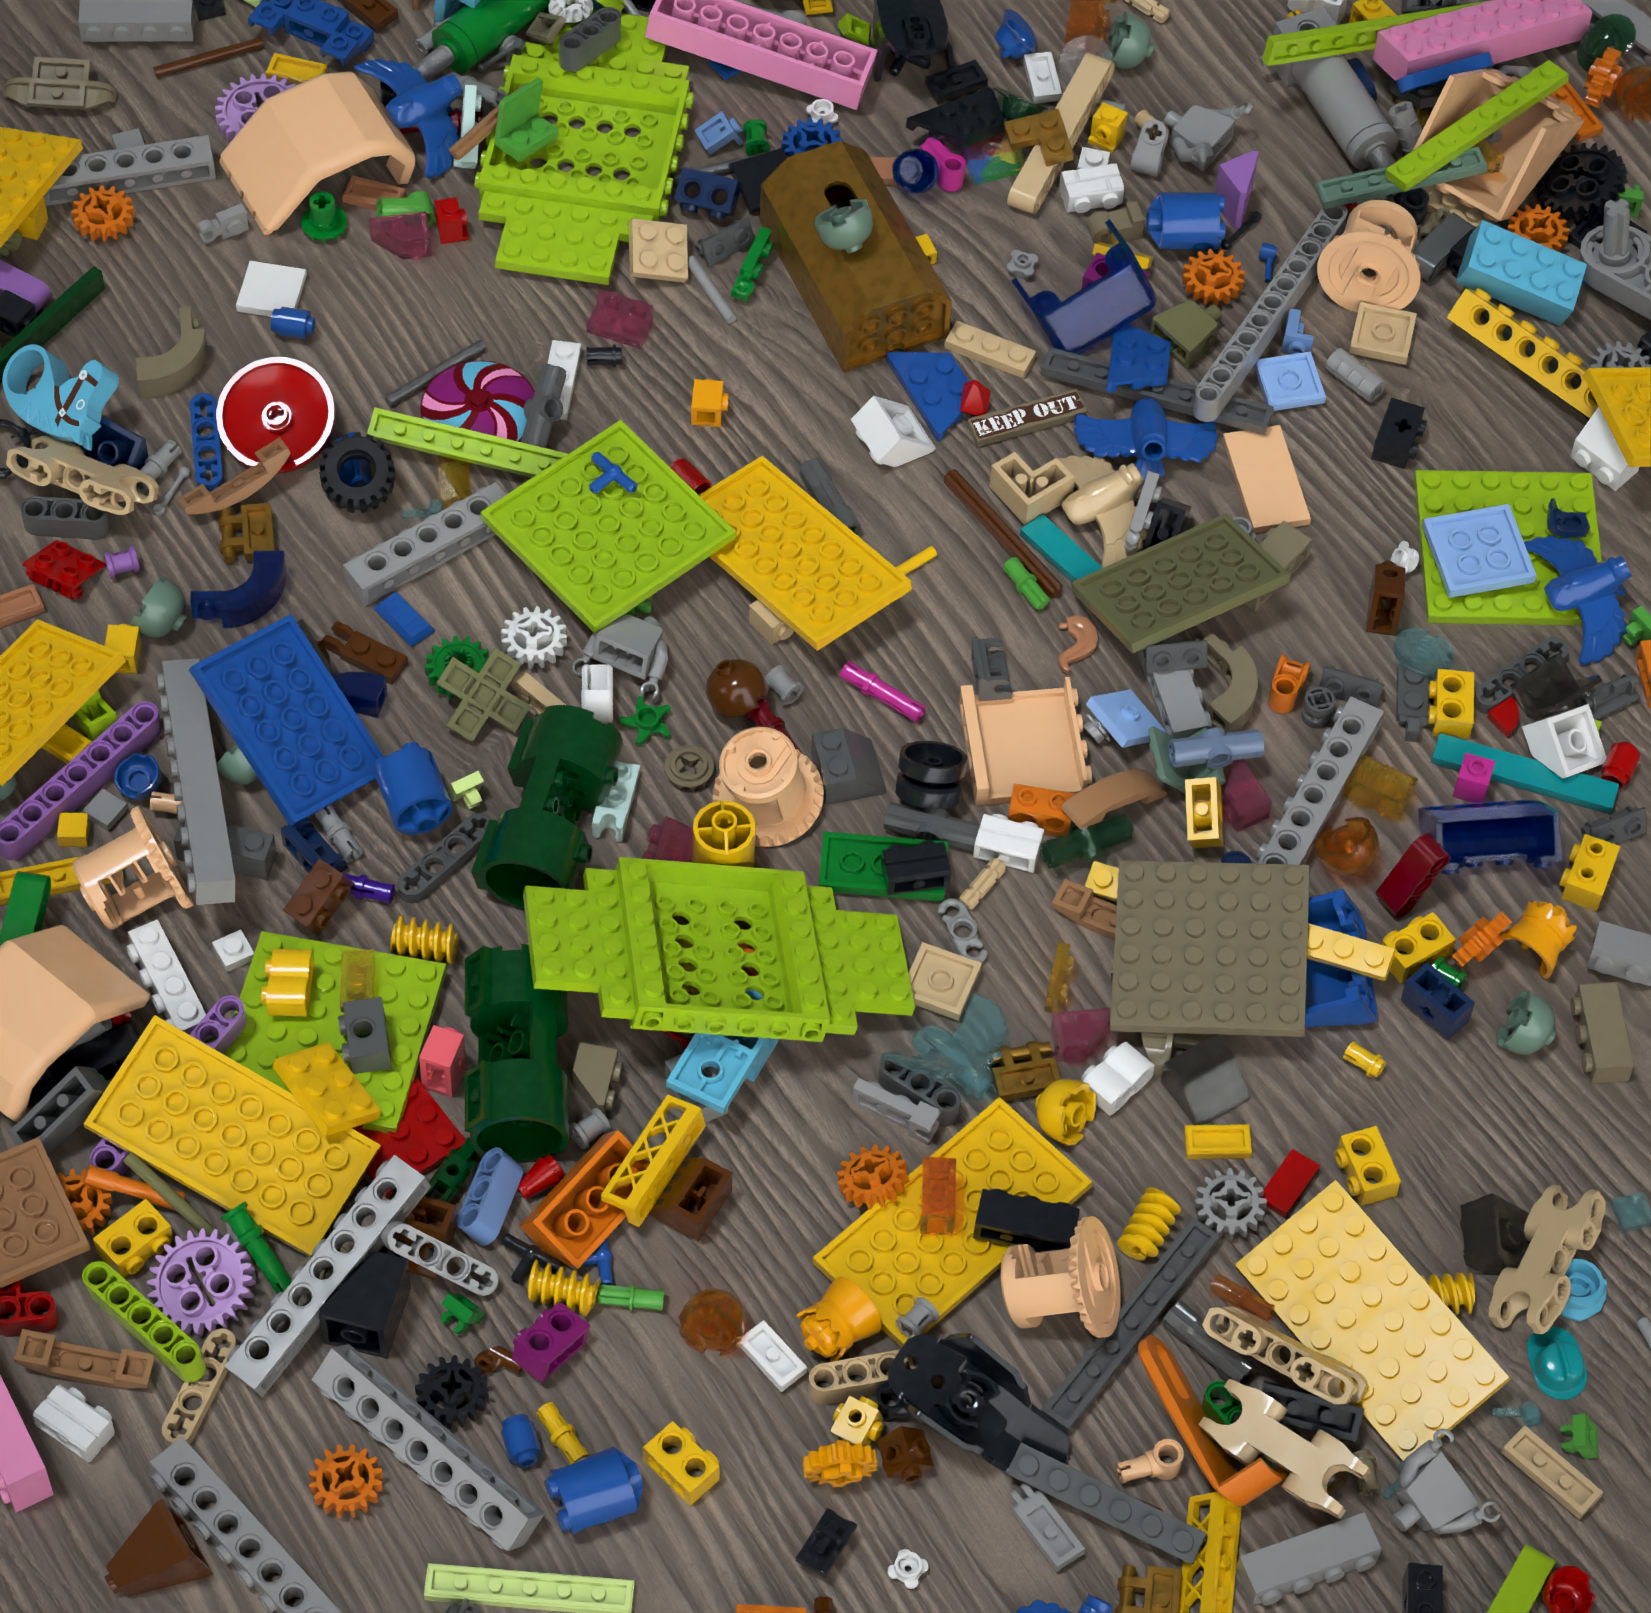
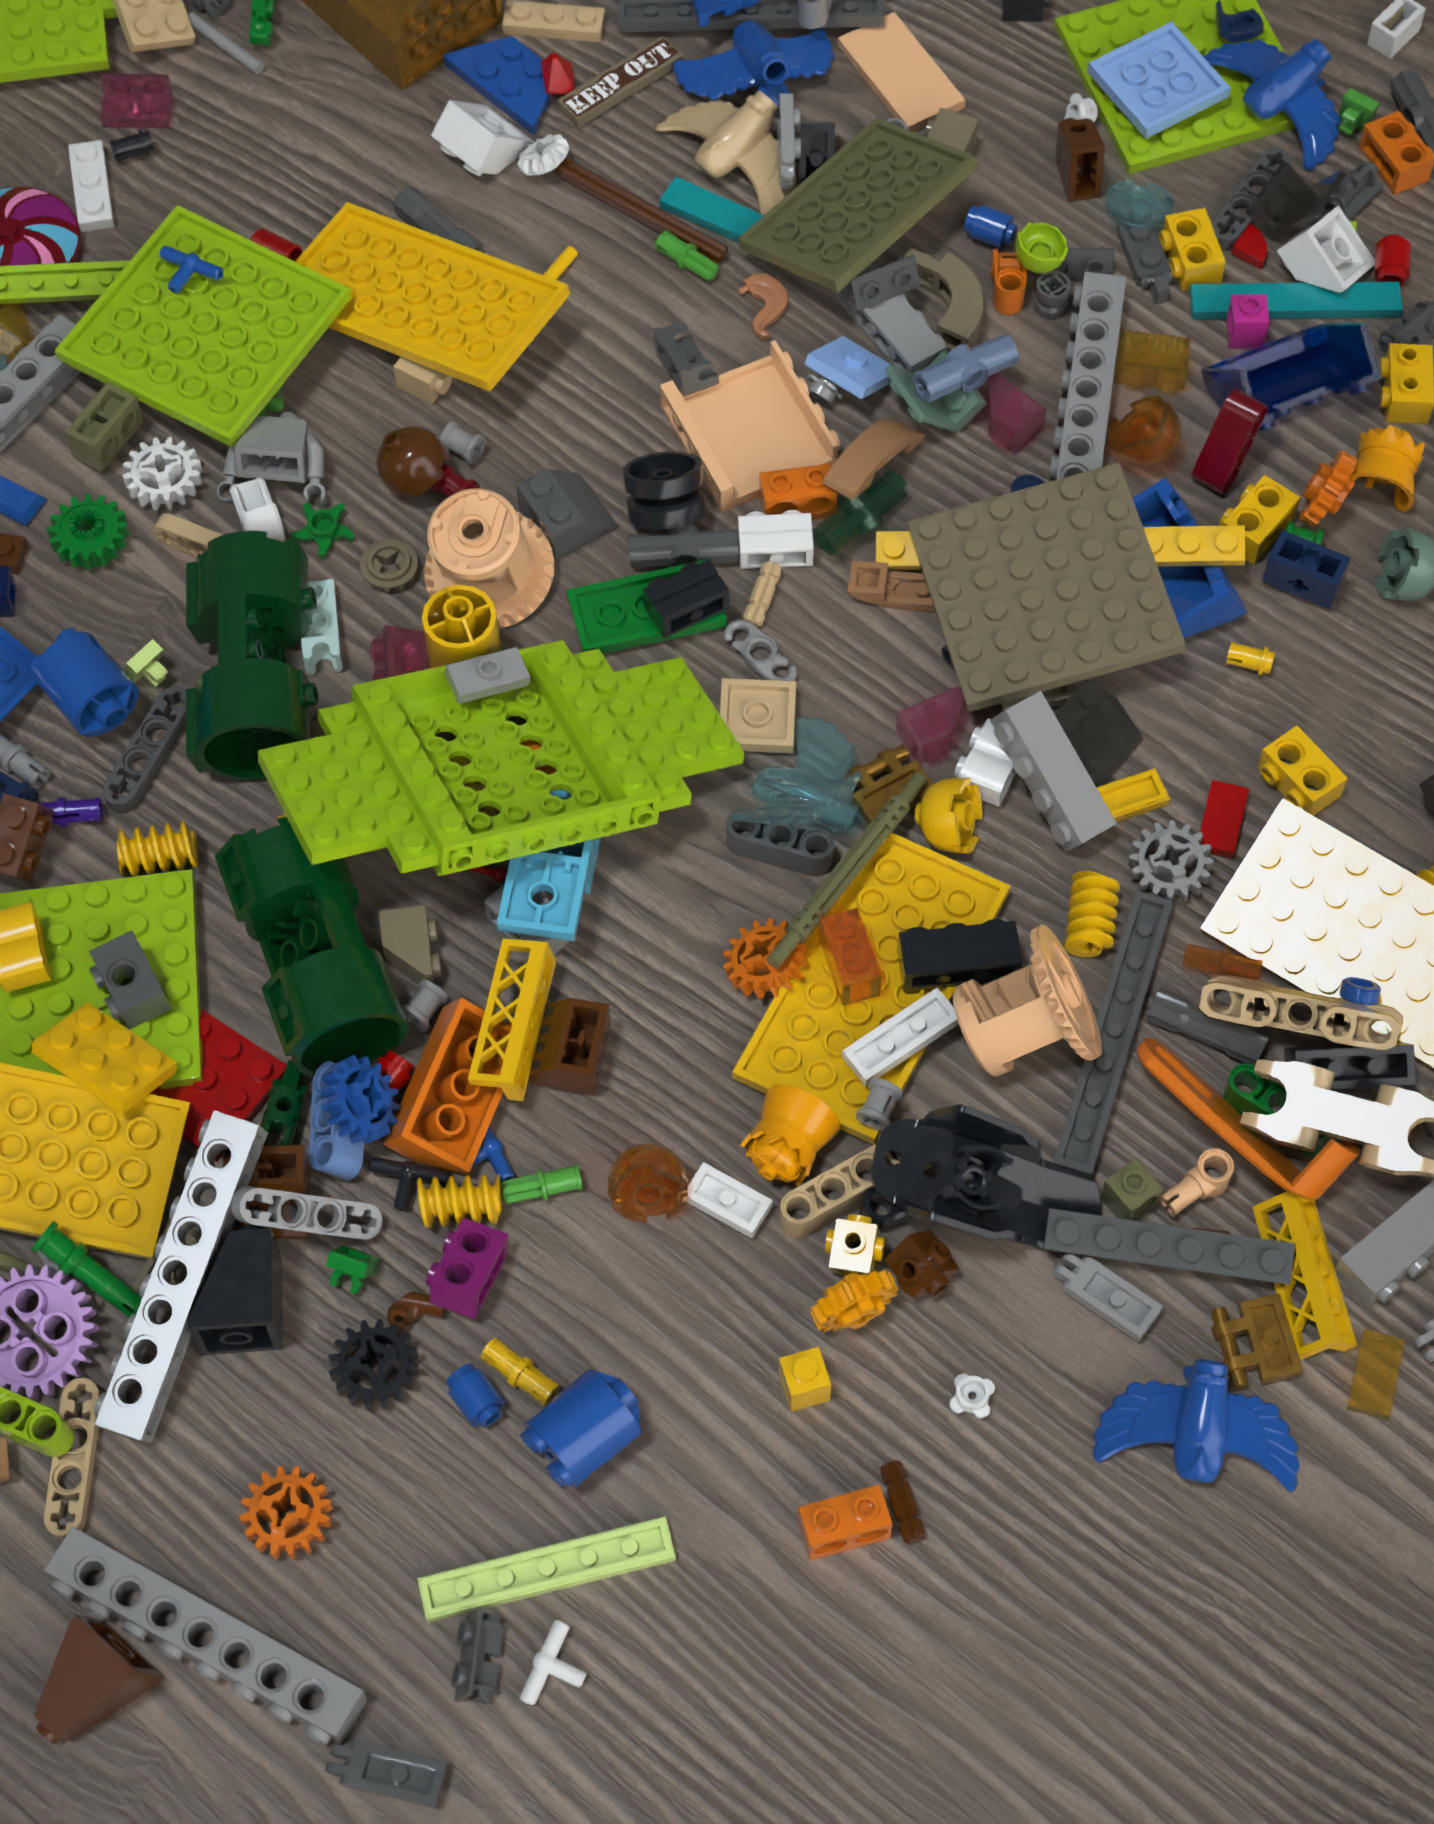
camera: 15 degrees left, 5 degrees up
(357, 975) = (94, 915): clear yellow plate -> none
(419, 1427) = (390, 1435): light grey brick -> none
(443, 1060) = (228, 981): coral brick -> none
(483, 695) = (128, 553): olive plate -> none
(500, 585) = (104, 426): none -> olive brick
(511, 1184) = (359, 1099): none -> blue gear
(544, 406) = (86, 215): dark grey piece -> none
(674, 1467) = (663, 1368): yellow brick -> none
(708, 402) = (266, 162): light orange brick -> none
(730, 881) = (487, 675): none -> light grey plate
(780, 1511) = (804, 1379): none -> yellow brick
(826, 1543) = (871, 1398): black hips -> none
(871, 685) = (583, 420): dark pink pin -> none
(919, 1119) = (765, 873): light grey plate -> none
(938, 463) = (543, 155): none -> white gear
(954, 1271) = (900, 1036): none -> white plate
(962, 1126) = (846, 870): none -> olive axle
(1029, 491) = (655, 155): tan brick -> none
(1057, 989) = (885, 658): clear yellow plate -> none
(1094, 1452) = (1131, 1192): none -> olive brick
(1158, 1100) = (1052, 771): none -> light grey brick
(1204, 812) = (977, 442): yellow brick -> none
(1289, 633) = (990, 226): none -> blue brick
(1318, 665) = (1040, 247): none -> lime hair
(1339, 1353) = (1360, 990): none -> blue tile

